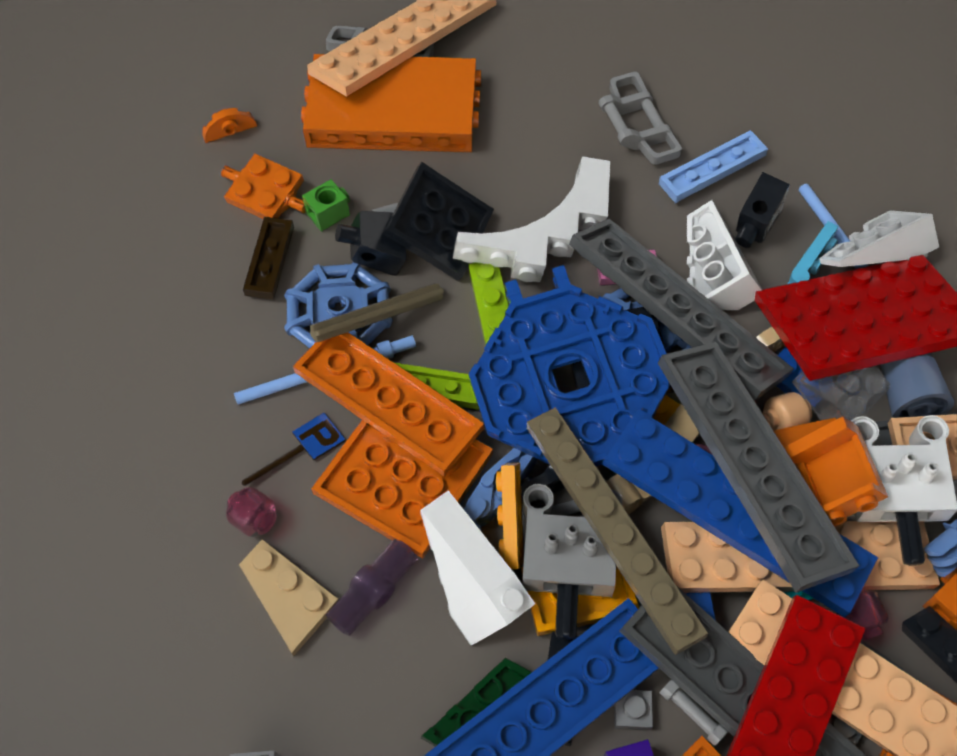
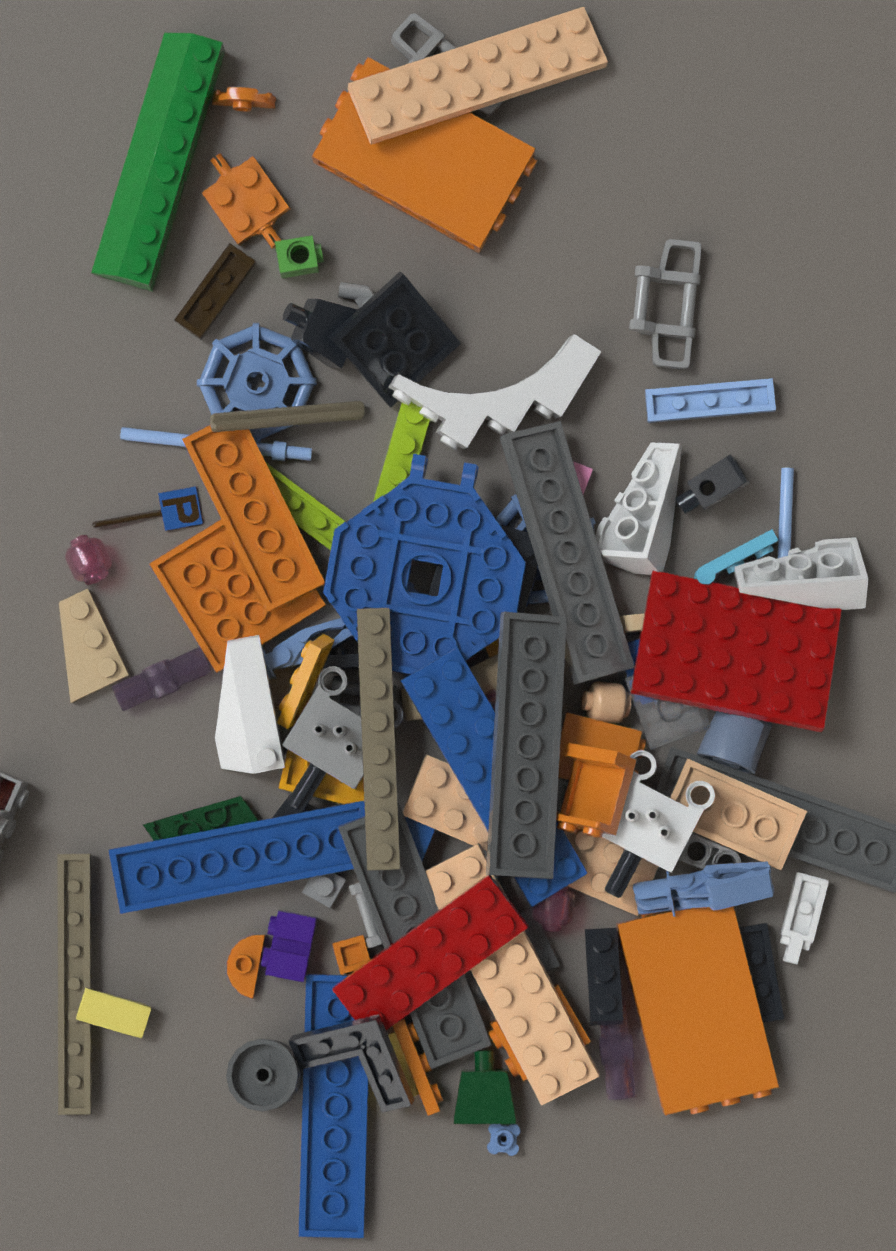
camera: 25 degrees right, 25 degrees up
(178, 192) = (159, 159): none -> green slope

